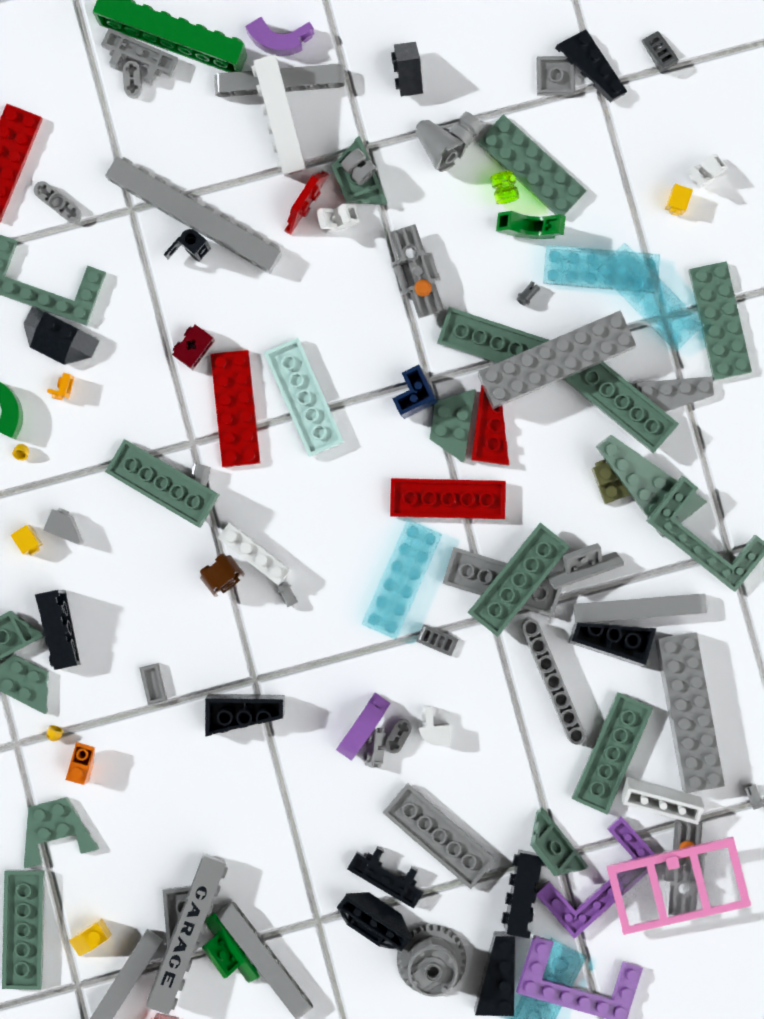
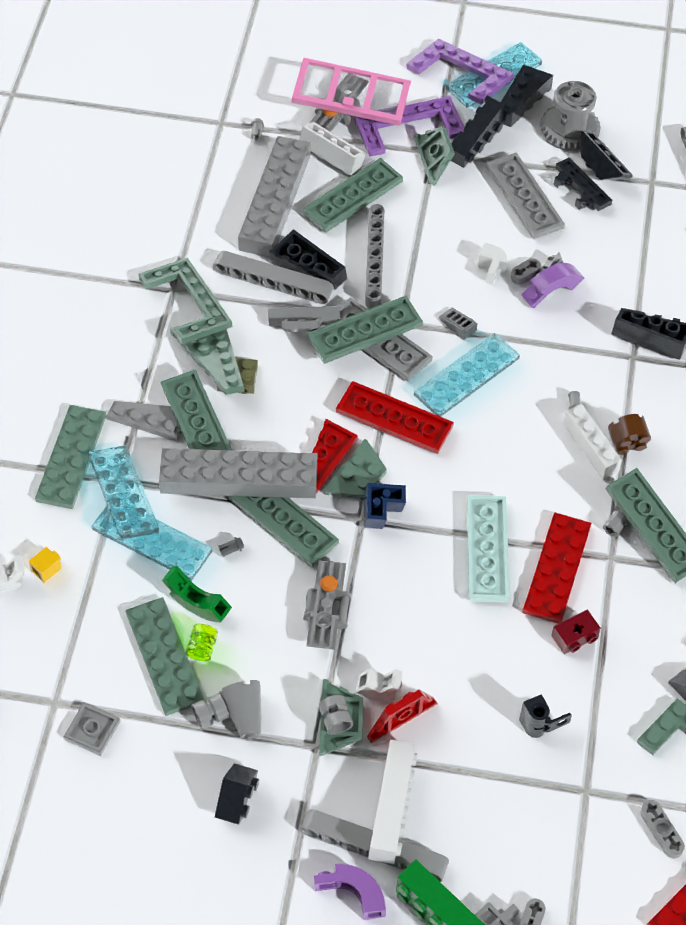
camera: 160 degrees left, 30 degrees down
(192, 214) = (525, 754): light grey brick -> none
(593, 65) = (51, 724): black wing -> none

